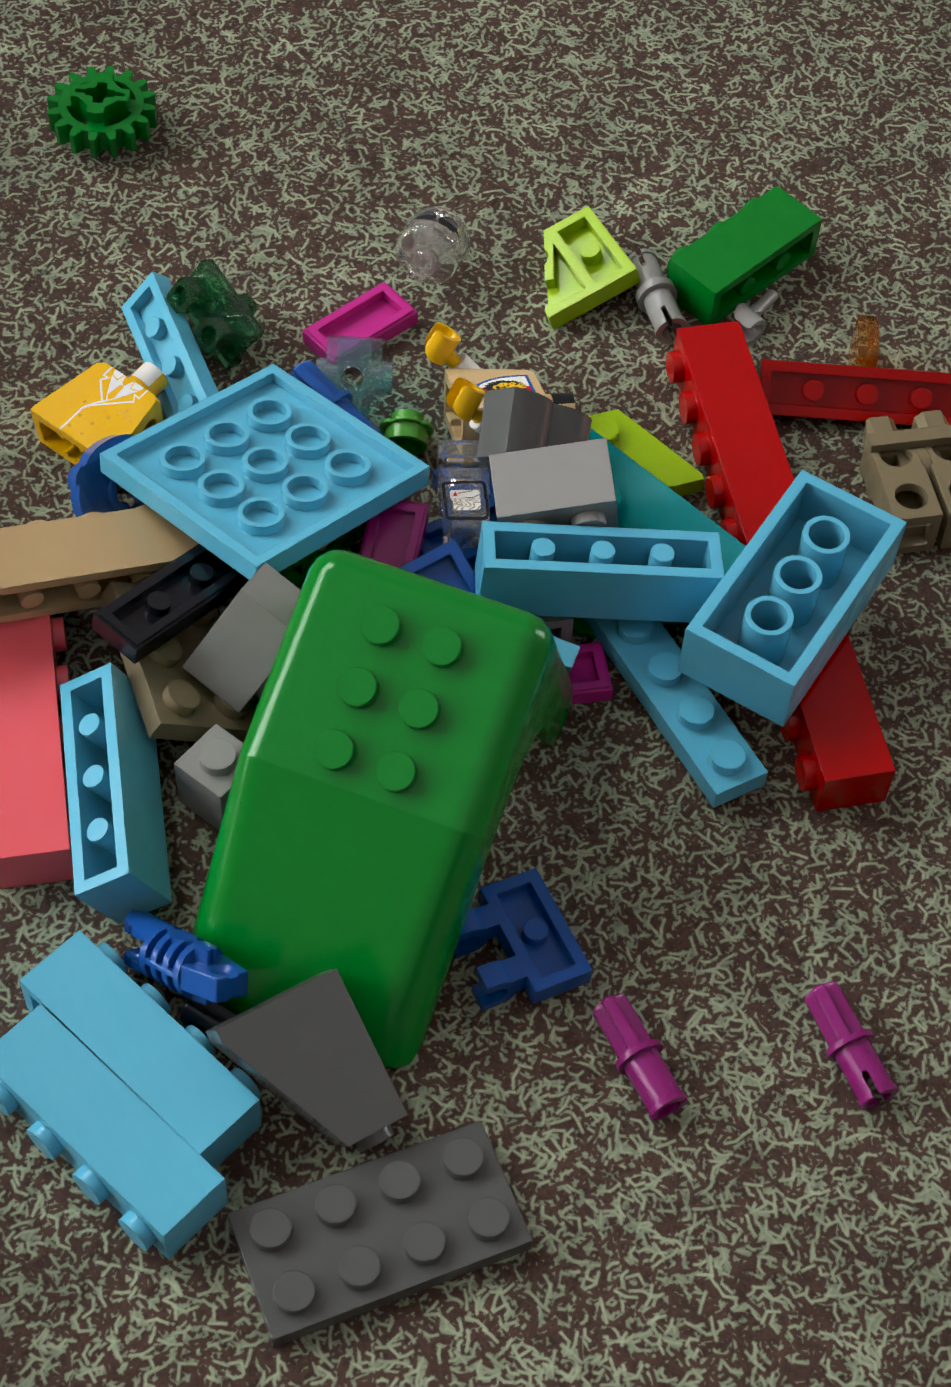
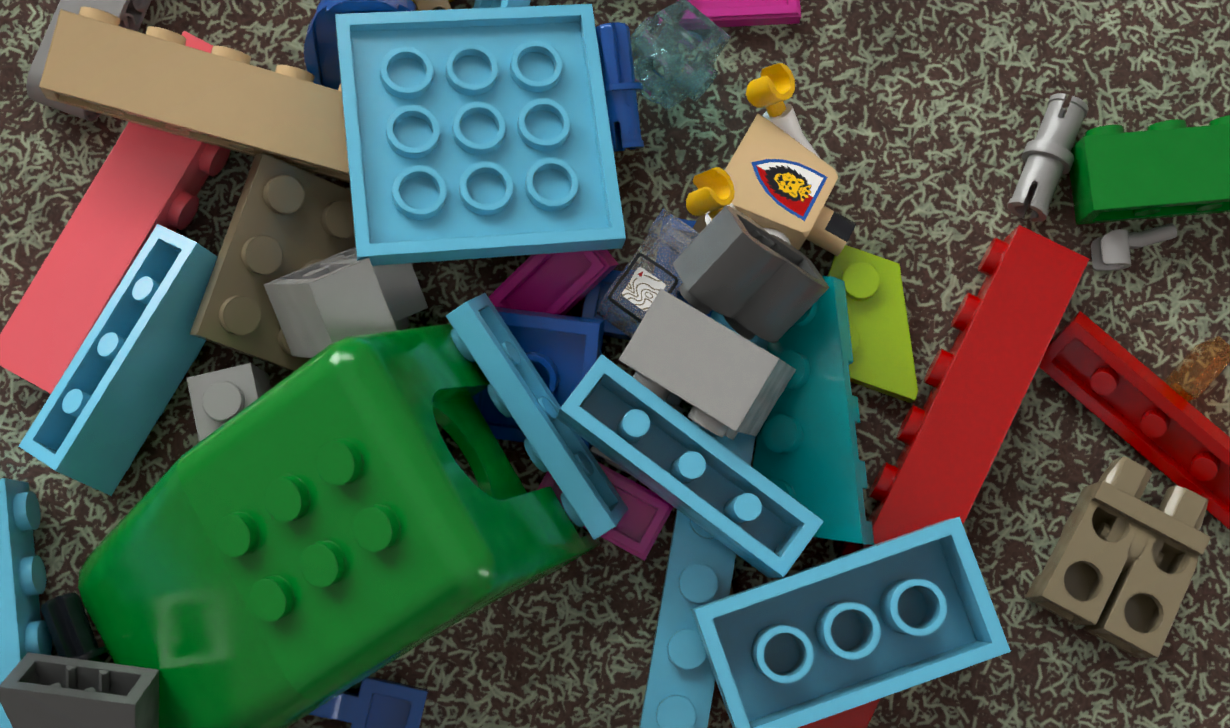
camera: 45 degrees right, 25 degrees up
(167, 603) = (277, 217): black tile -> none
(182, 961) = (62, 571): blue hinge -> none
(408, 430) = (678, 151): bright green plate -> none
(583, 267) = (1003, 74): lime wing -> none

